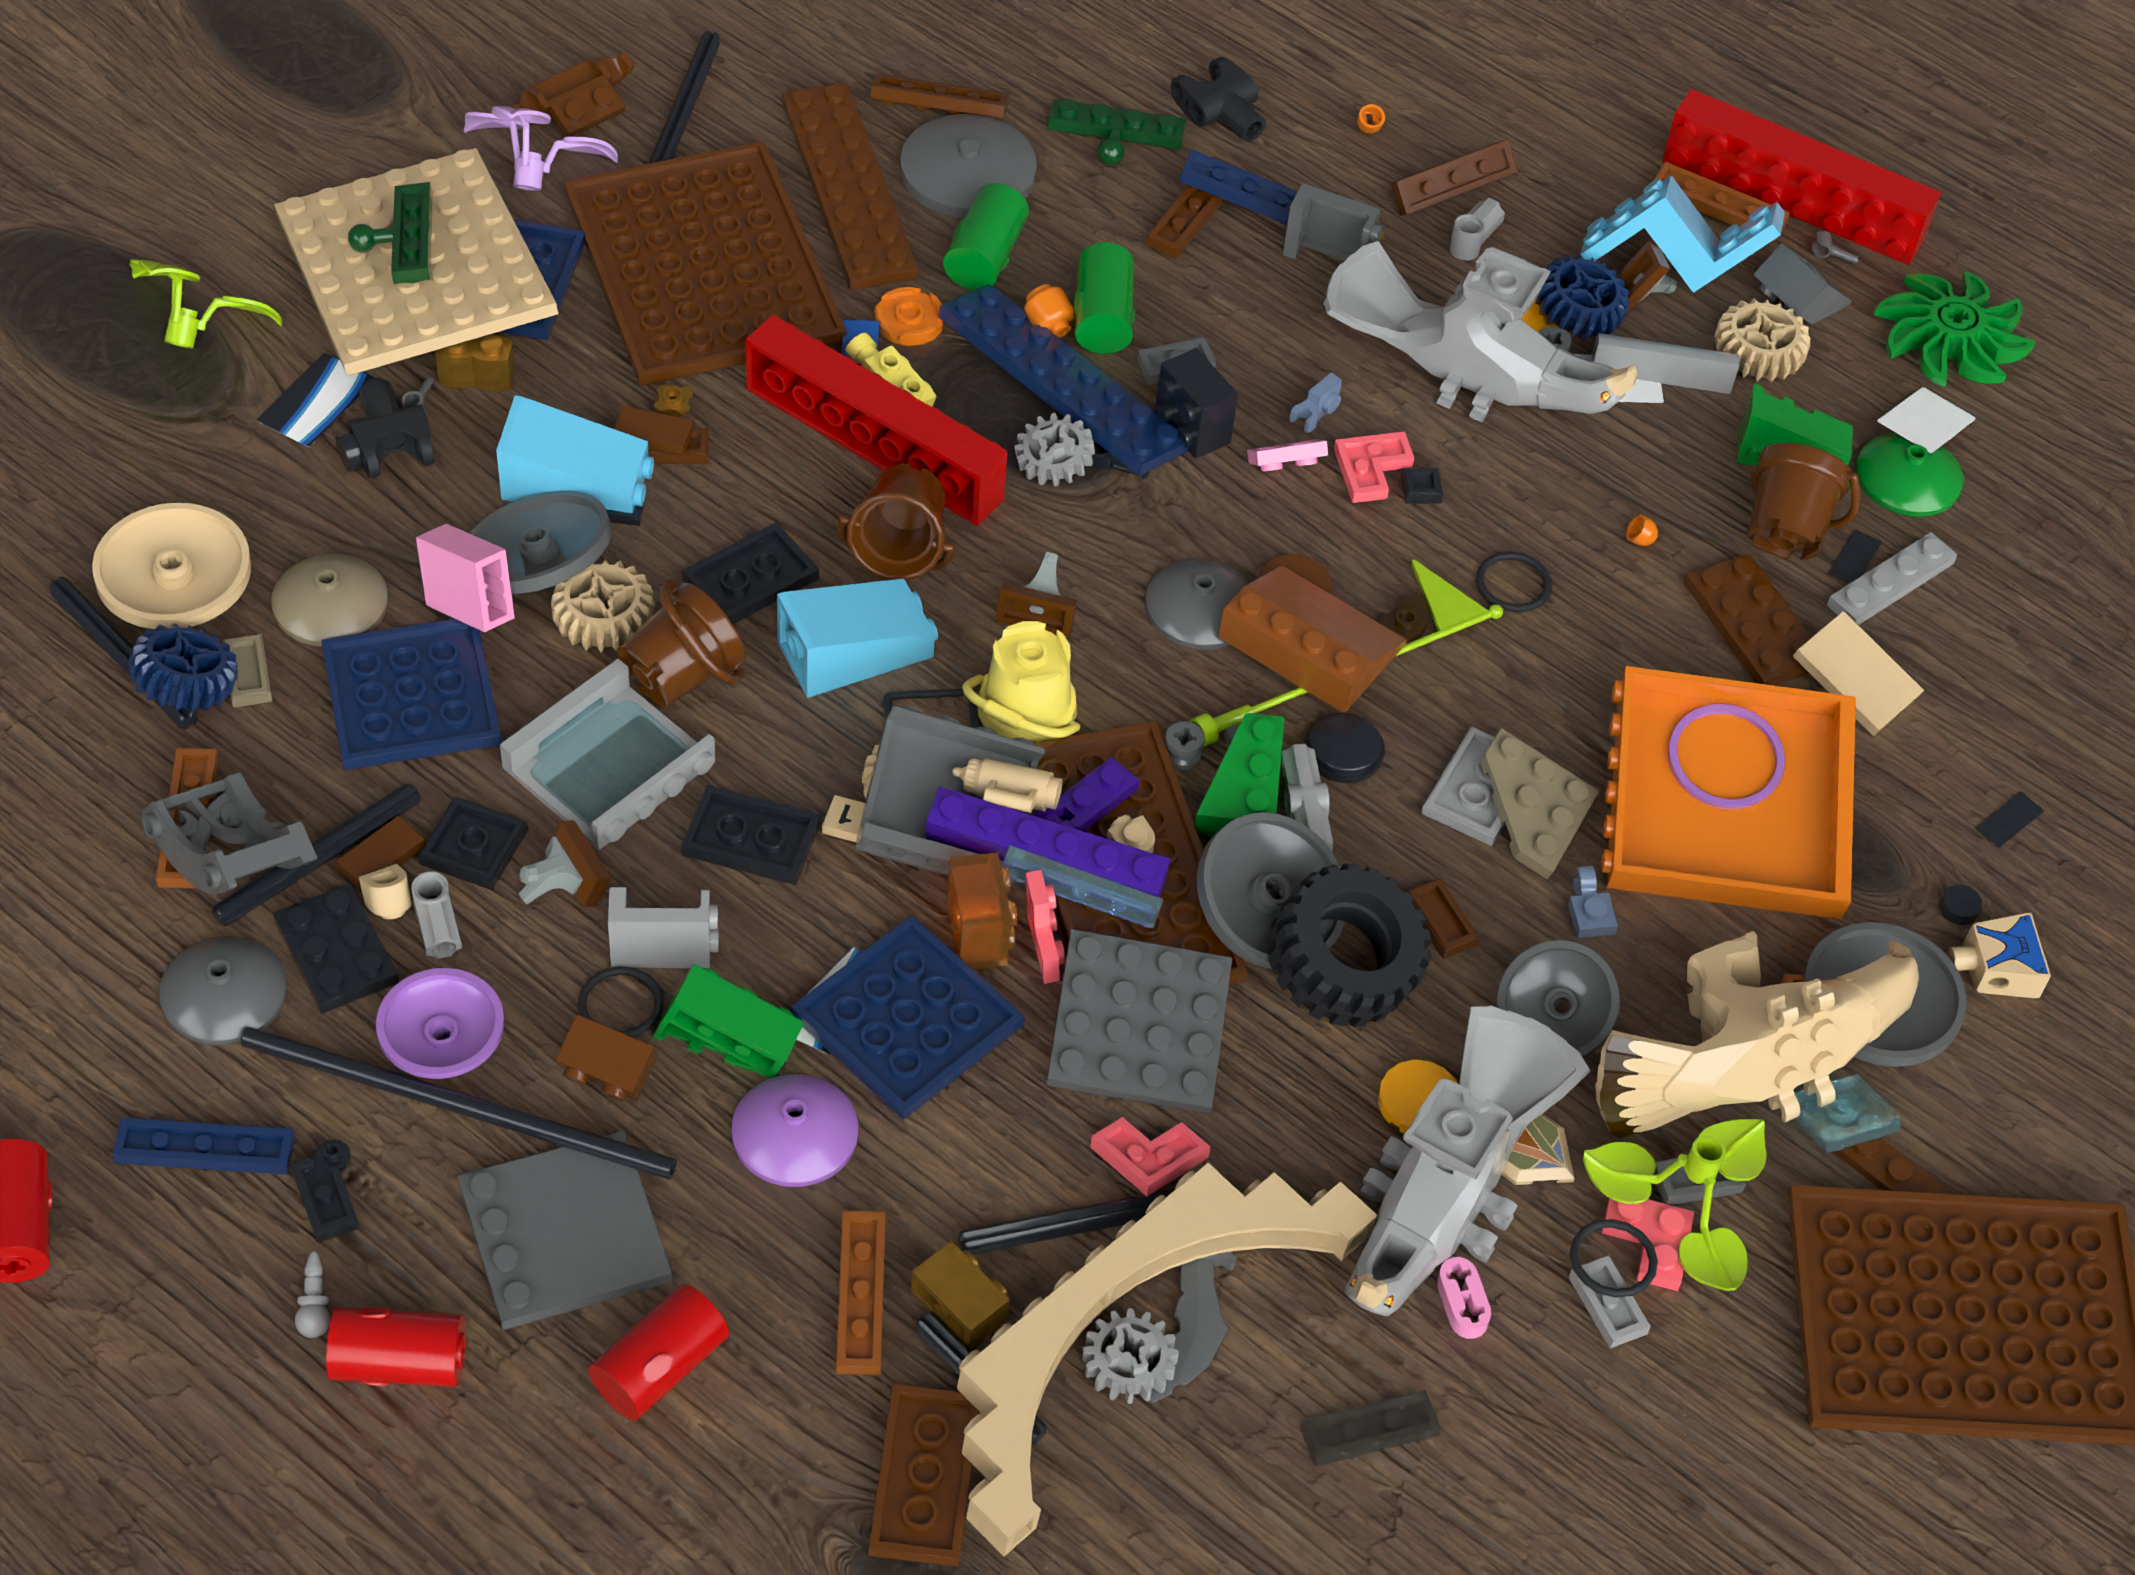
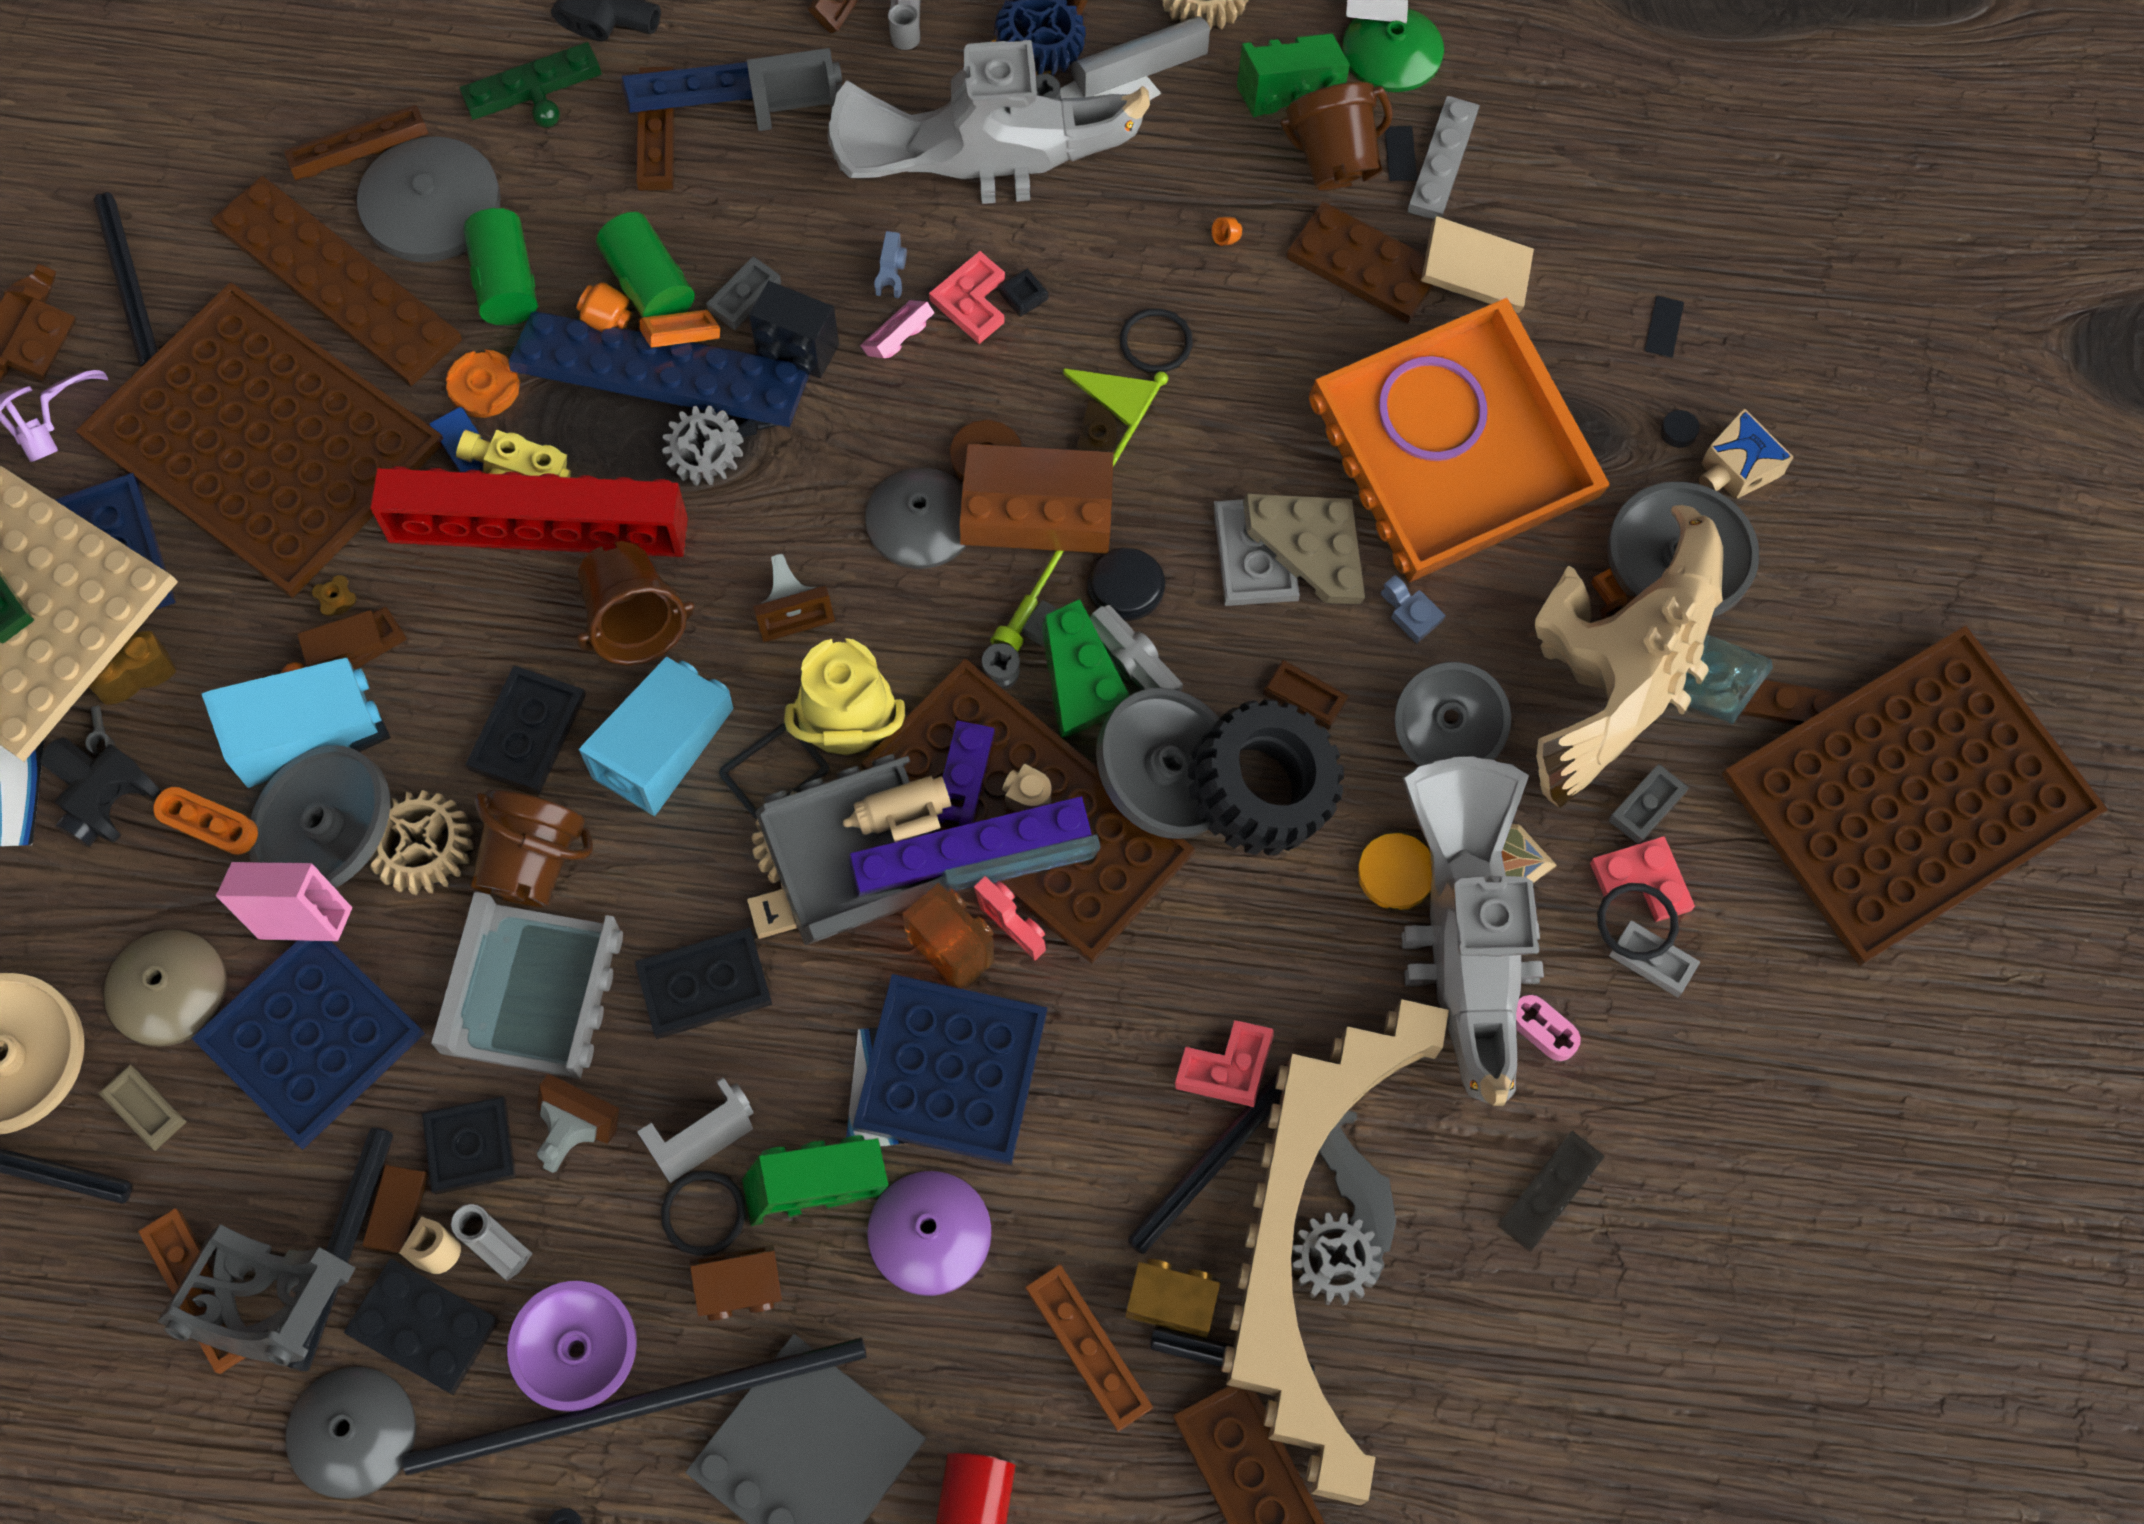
camera: 30 degrees left, 15 degrees up
(183, 667) = (85, 1160): dark blue gear -> none
(450, 496) = (197, 813): none -> orange plate
(1101, 356) = (679, 328): none -> orange tile
(1140, 1021) = (1141, 951): dark grey plate -> none
(1730, 1147) = (1667, 766): lime plant -> none

